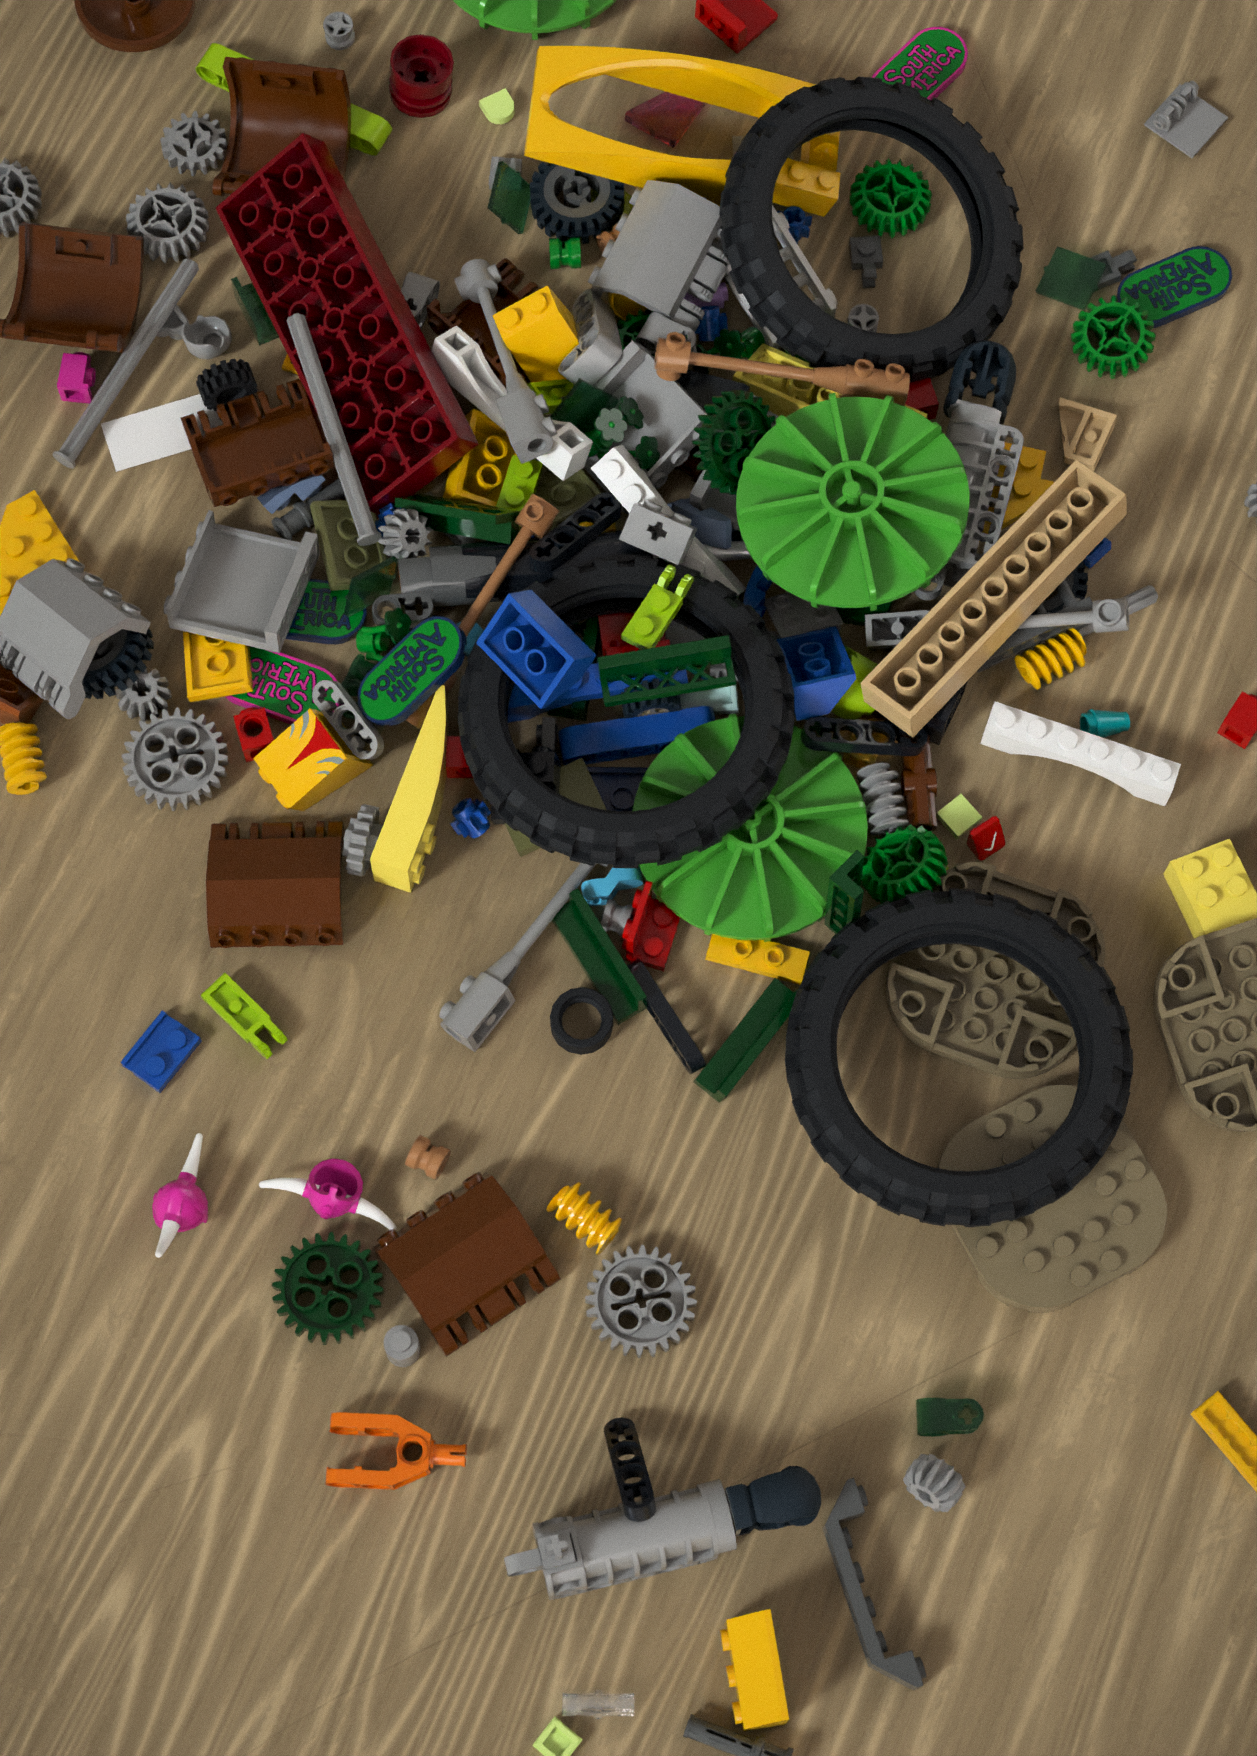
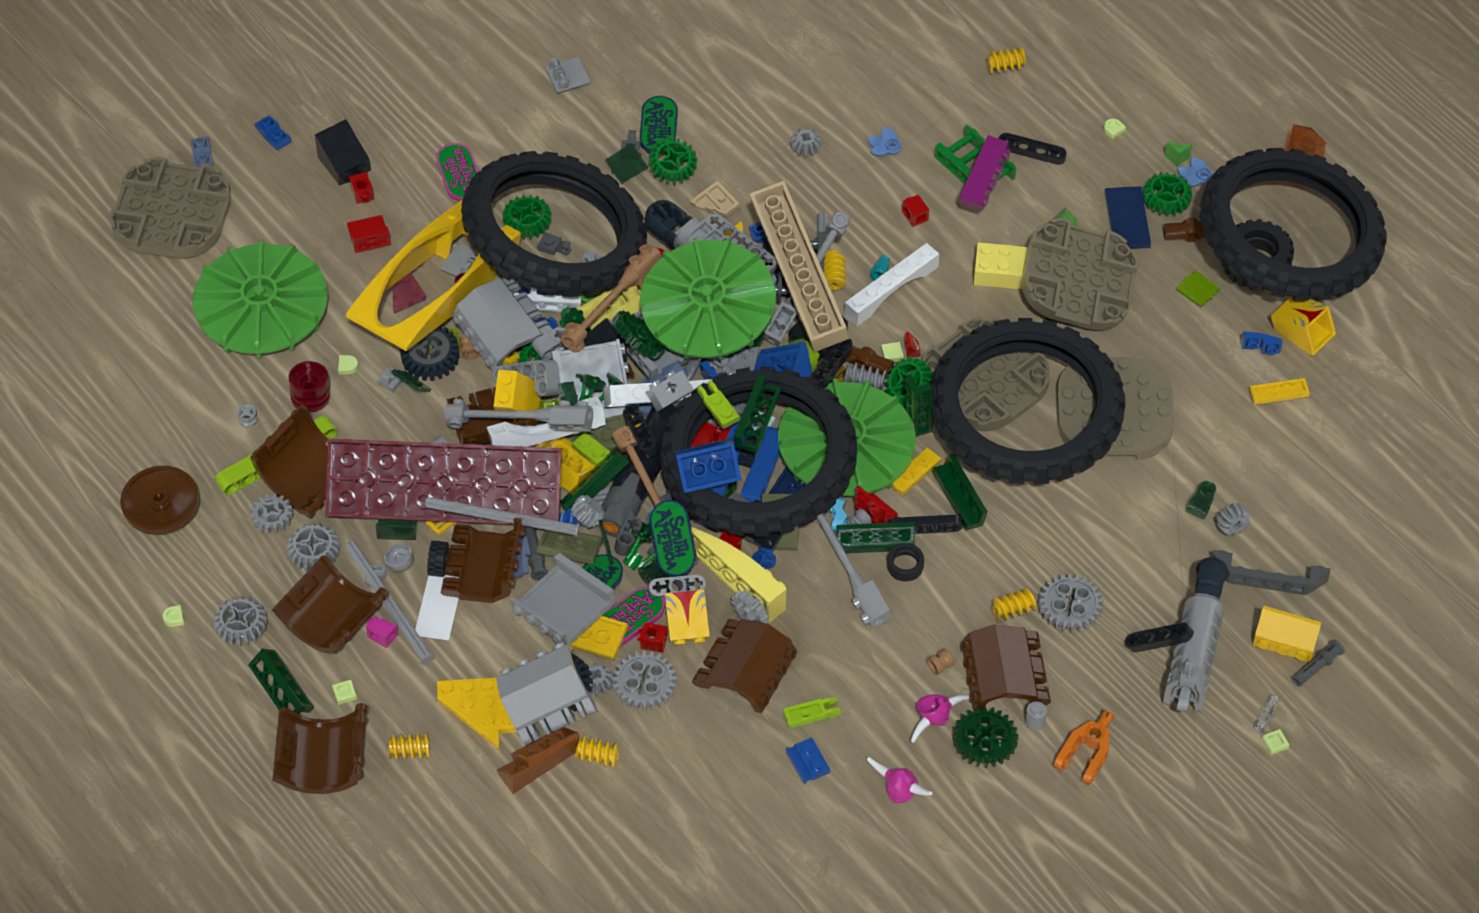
camera: 60 degrees left, 15 degrees down
(565, 253) = (460, 373): green wheel -> none

